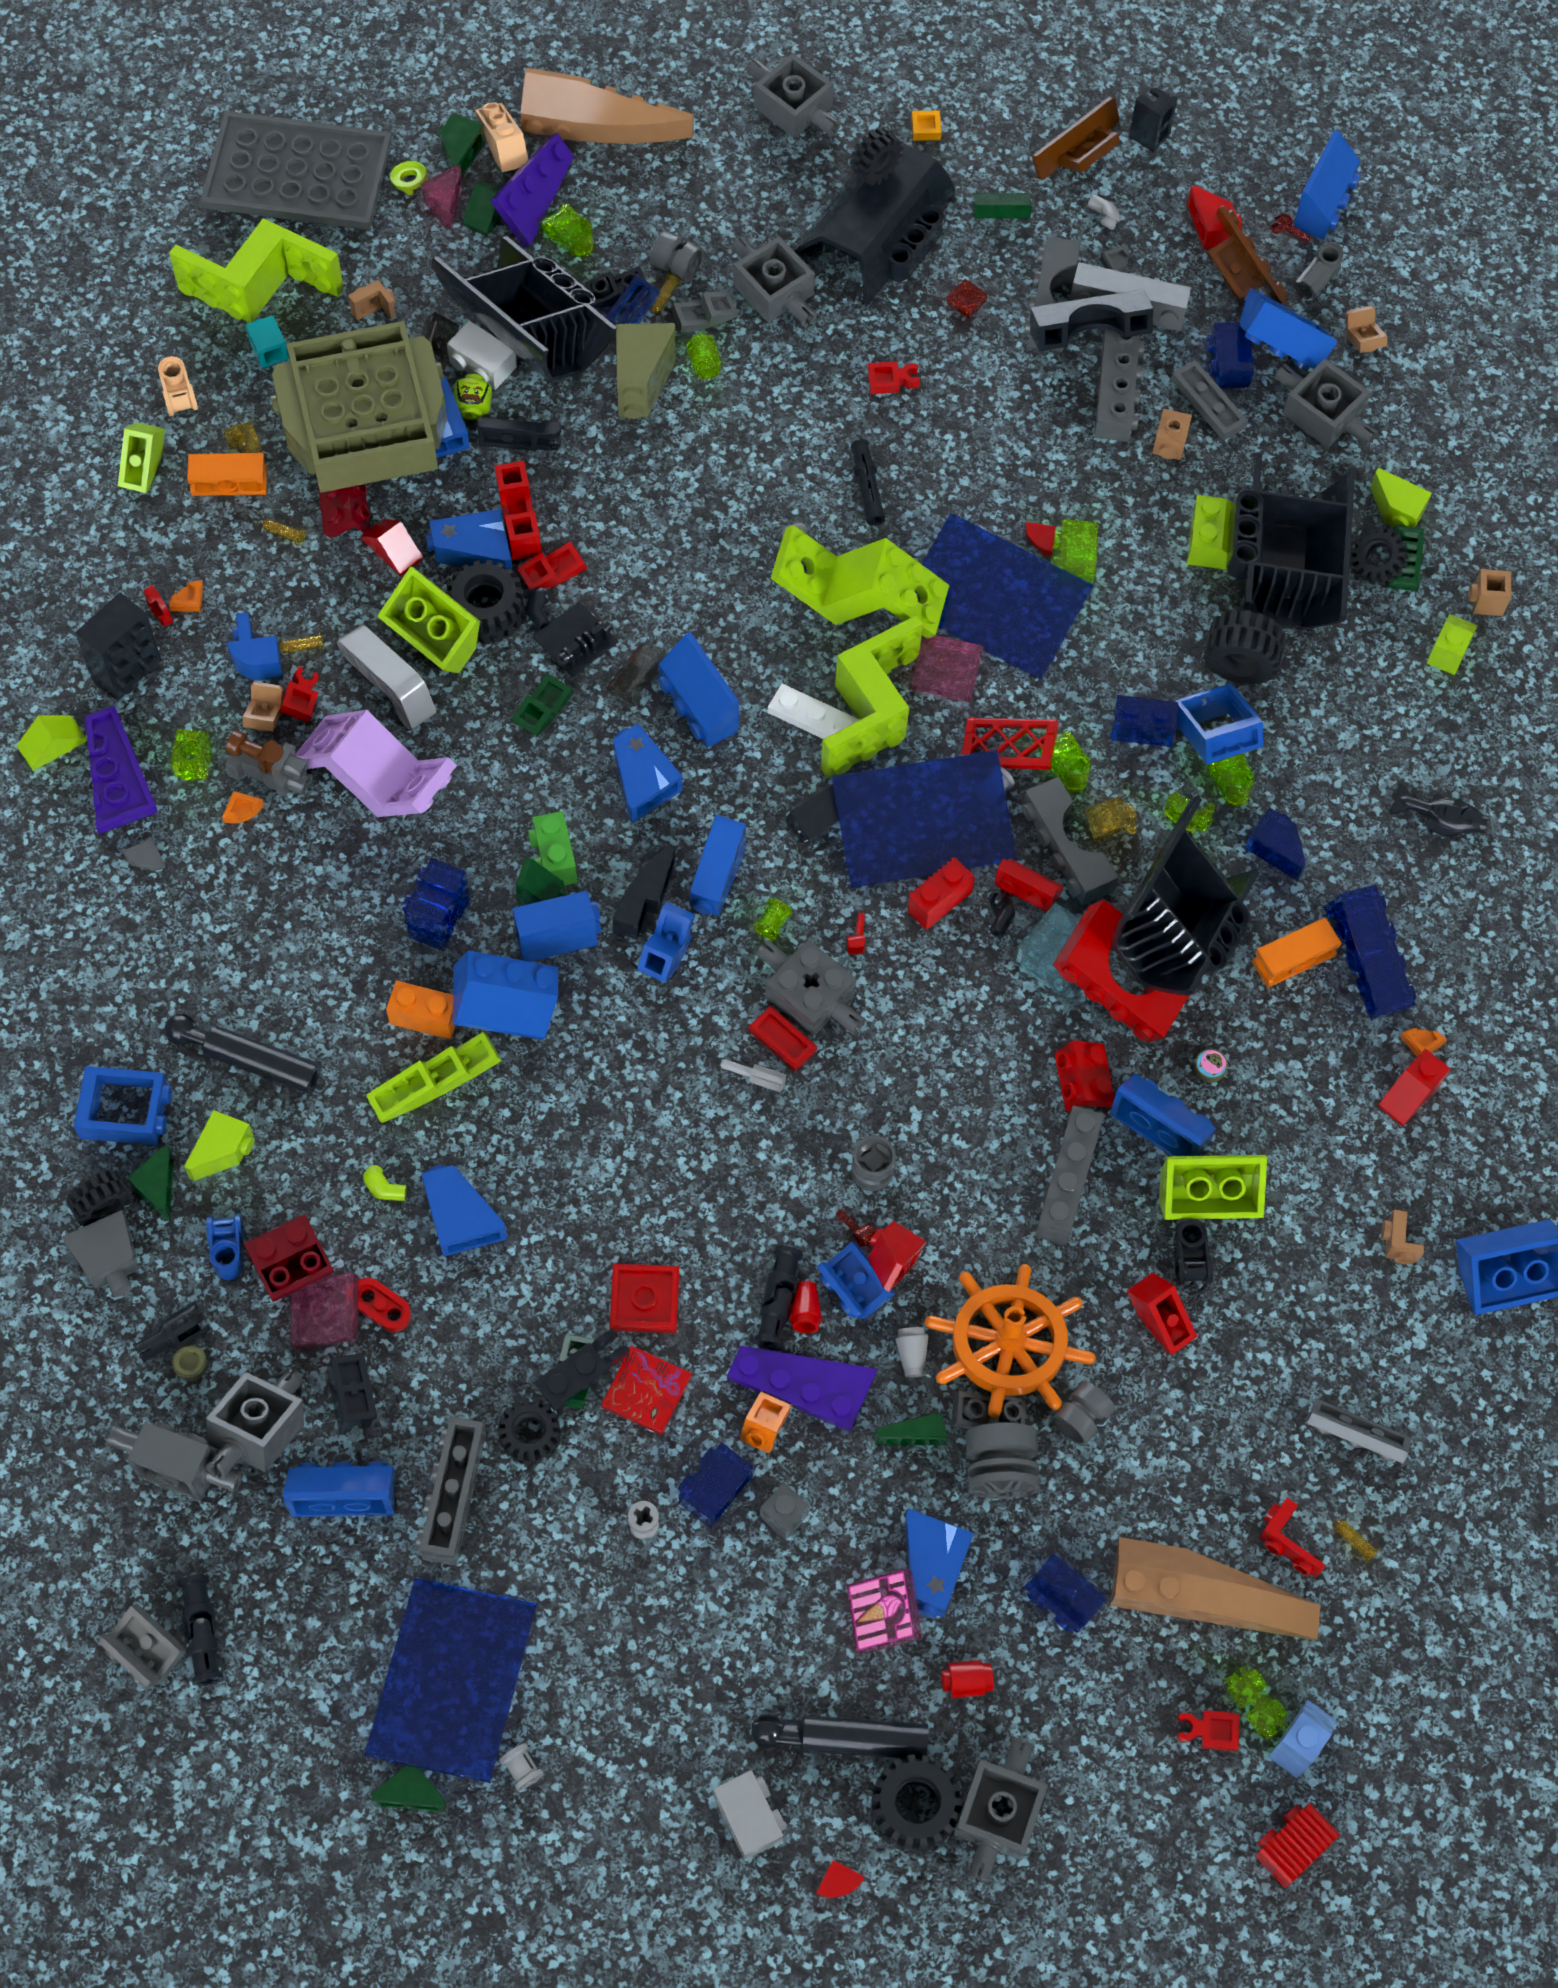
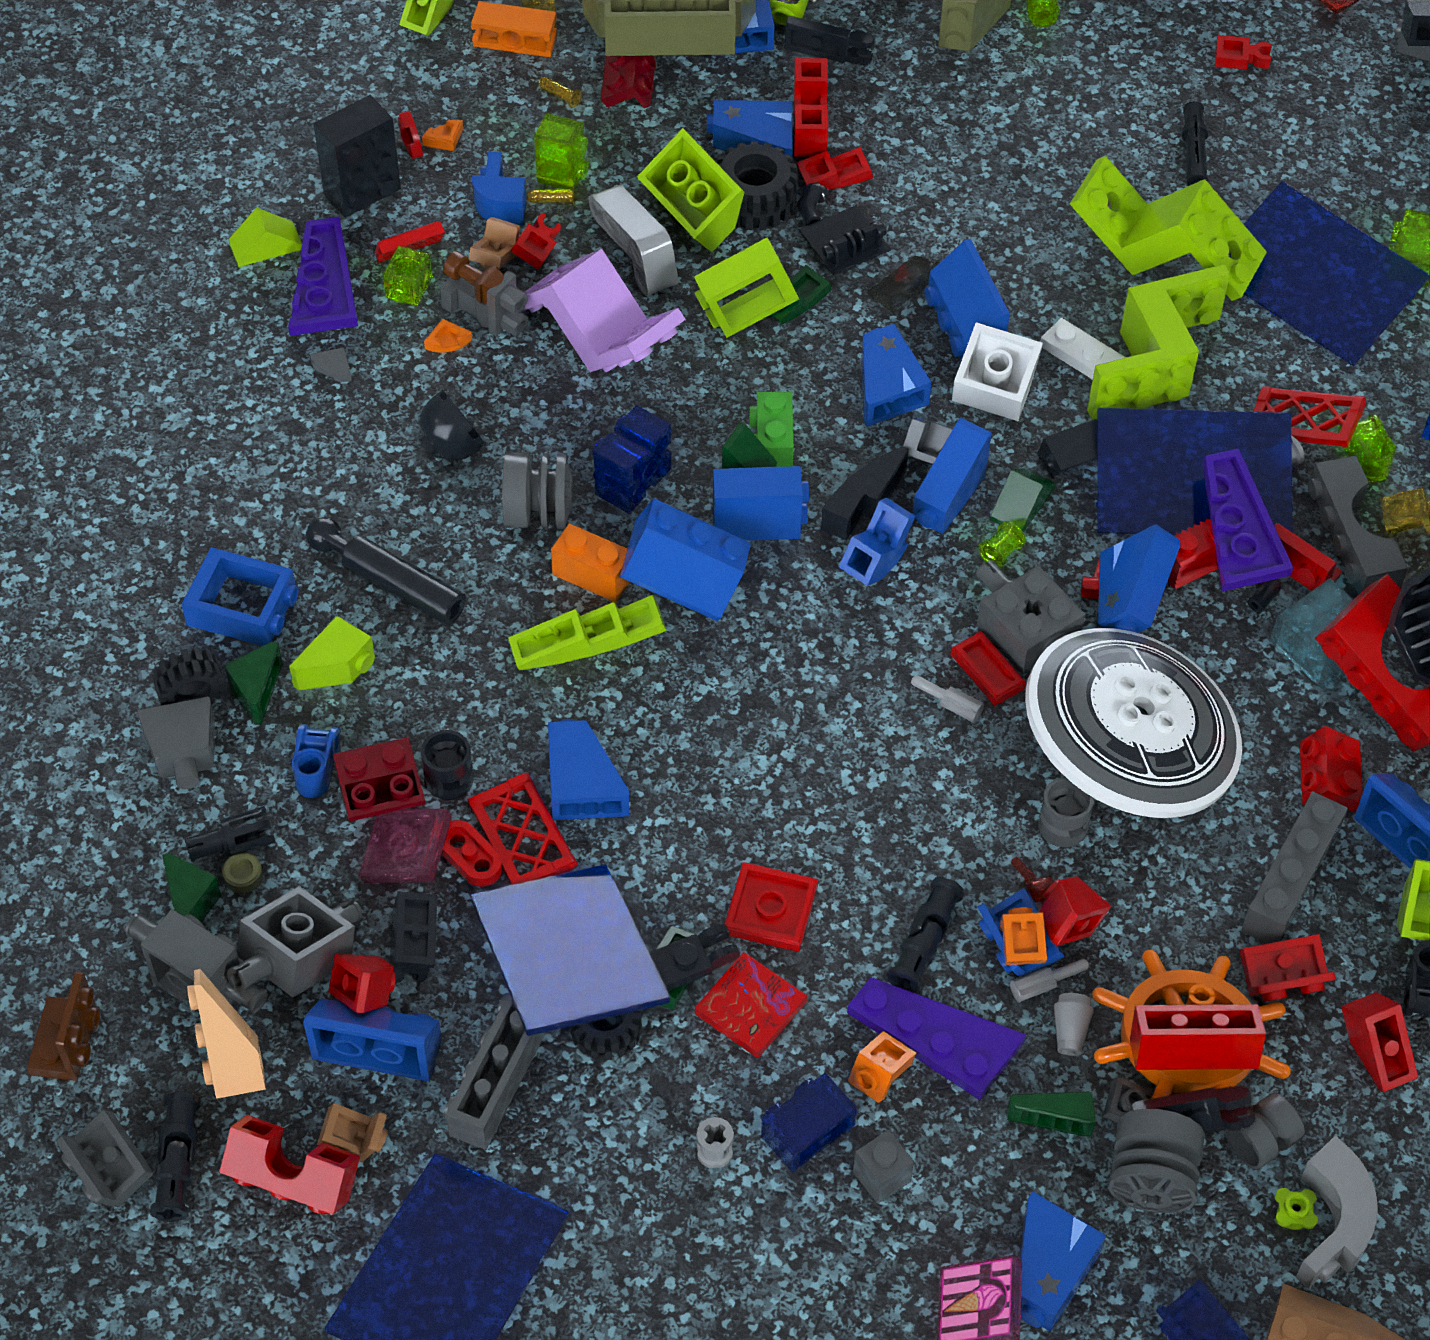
camera: 15 degrees right, 10 degrees down
(76, 1543) = (64, 1033): none -> reddish brown bracket
(151, 1391) = (190, 887): none -> dark green slope
(184, 718) = (412, 239): none -> red tile
(222, 1523) = (231, 1044): none -> light nougat slope
(266, 905) = (448, 429): none -> black cylinder
(272, 1620) = (256, 1159): none -> arch
(302, 602) = (560, 152): none -> clear neon green brick
(319, 1446) = (361, 981): none -> red slope
(339, 1222) = (447, 764): none -> black wheel
(343, 1577) = (353, 1131): none -> medium nougat bracket
(359, 952) = (535, 490): none -> dark grey wheel
(380, 1187) = (501, 734): lime arm -> none
(393, 545) = (669, 117): slope -> none
(428, 1248) = (502, 795): none -> red window
(486, 1380) = (568, 950): none -> clear blue piece
(500, 715) = (737, 273): none -> lime window
(690, 831) = (926, 439): none -> panel
(737, 753) = (996, 371): none -> white slope
(781, 870) = (1022, 497): none -> slope
(806, 1310) = (954, 955): red cone -> none
(860, 1289) = (1023, 937): none -> orange bracket
(882, 1316) = (1044, 980): none -> light grey axle
(892, 936) = (1135, 578): none -> blue slope
(896, 1100) = (1089, 725): none -> dish
(947, 668) = (1249, 335): clear pink tile -> none
(974, 871) = (1241, 526): none -> dark purple wing
(1017, 1351) = (1197, 1037): none -> red brick
(1032, 1409) = (1204, 1107): none -> black hinge
(1041, 537) = (1378, 226): red tile -> none
(1077, 1265) = (1284, 966): none -> red bracket
(1115, 1481) = (1296, 1220): none -> lime plate
(1161, 1455) = (1351, 1197): none -> light grey arch

